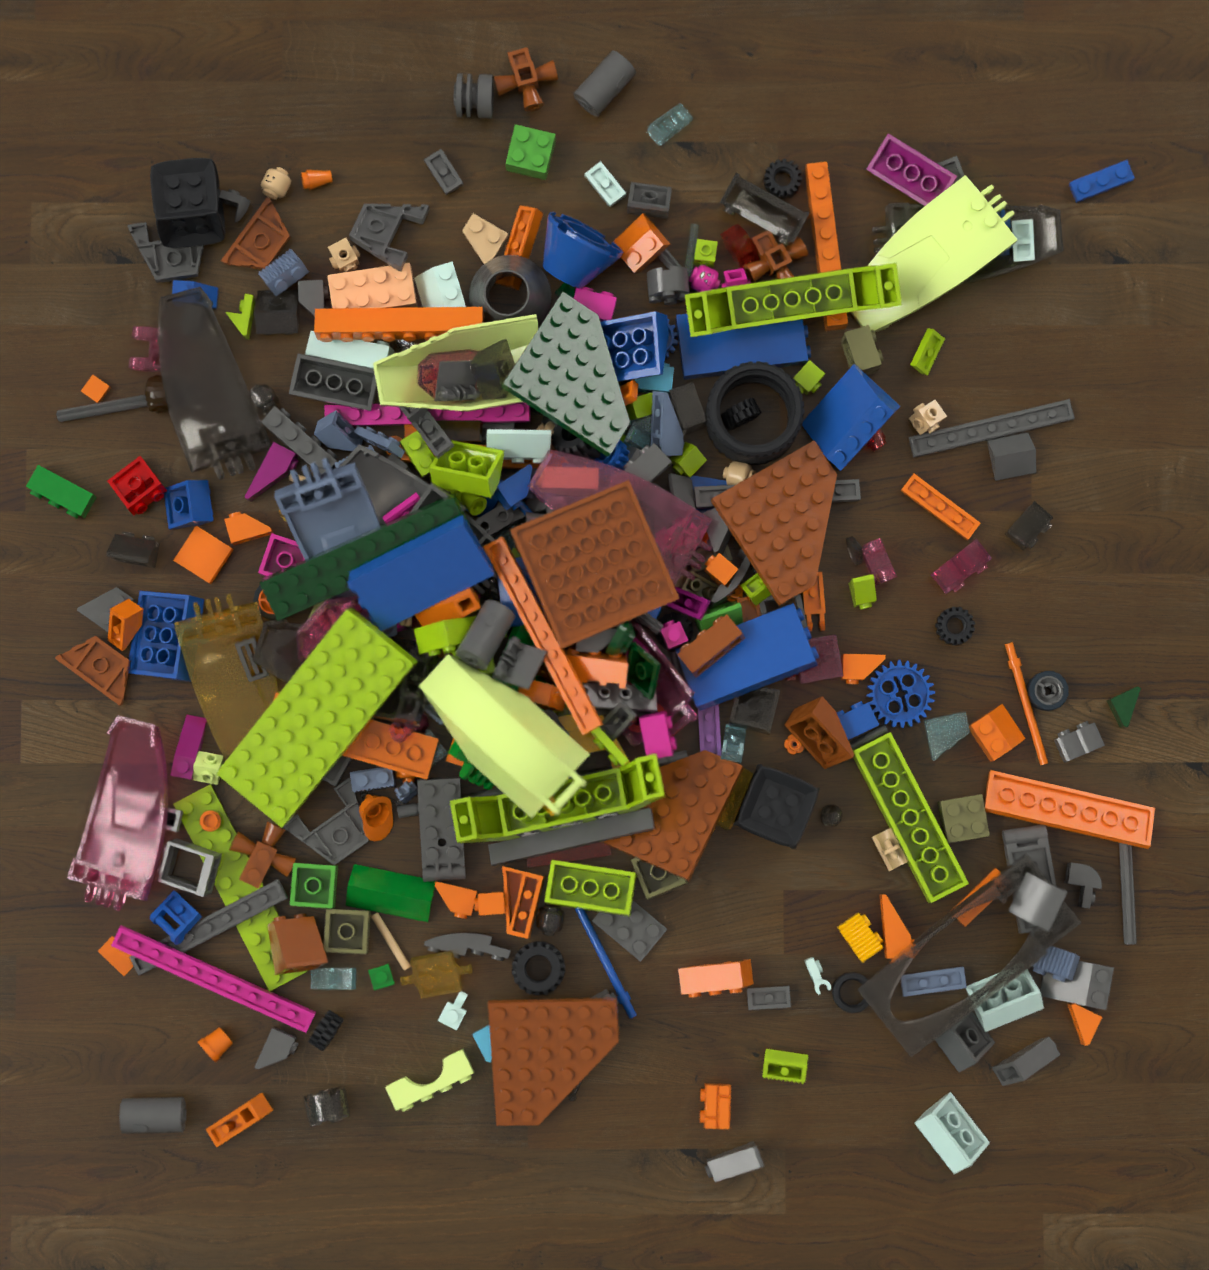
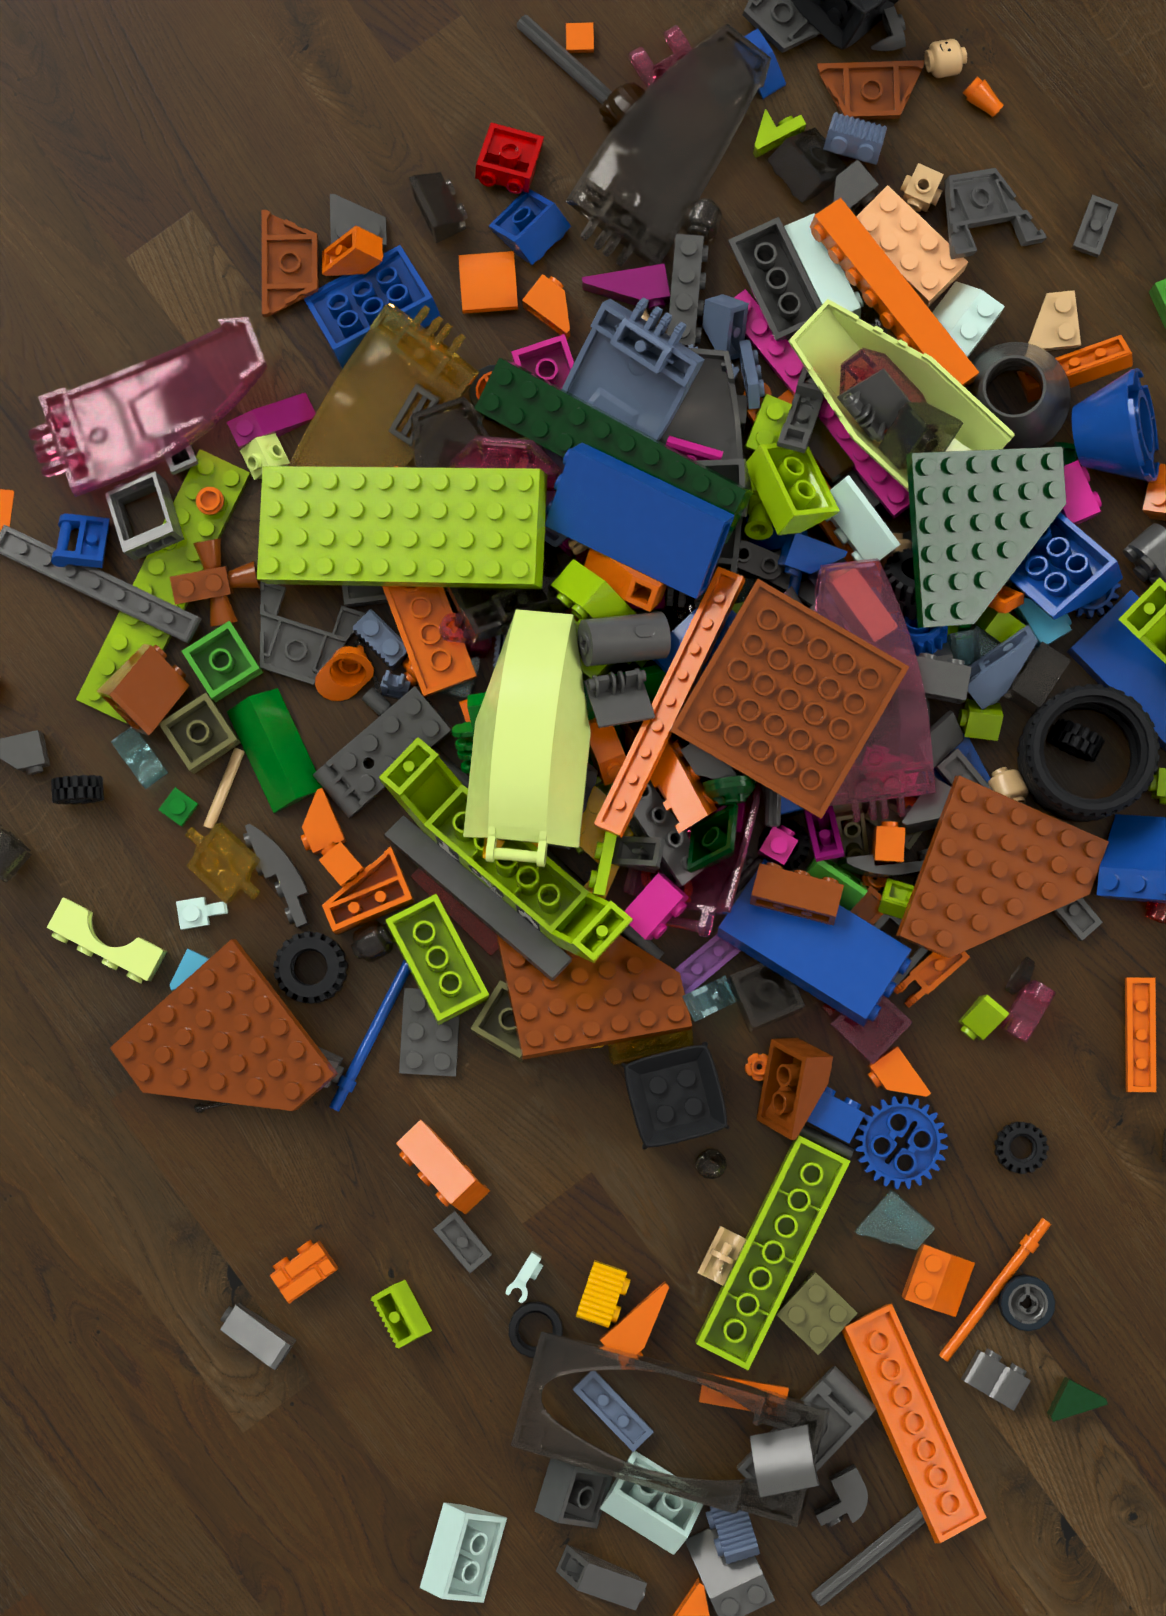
camera: 60 degrees right, 0 degrees up
(60, 492) = (441, 83): green brick -> none
(213, 978) = (45, 629): dark pink plate -> none
(961, 566) = (1092, 1106): clear pink brick -> none

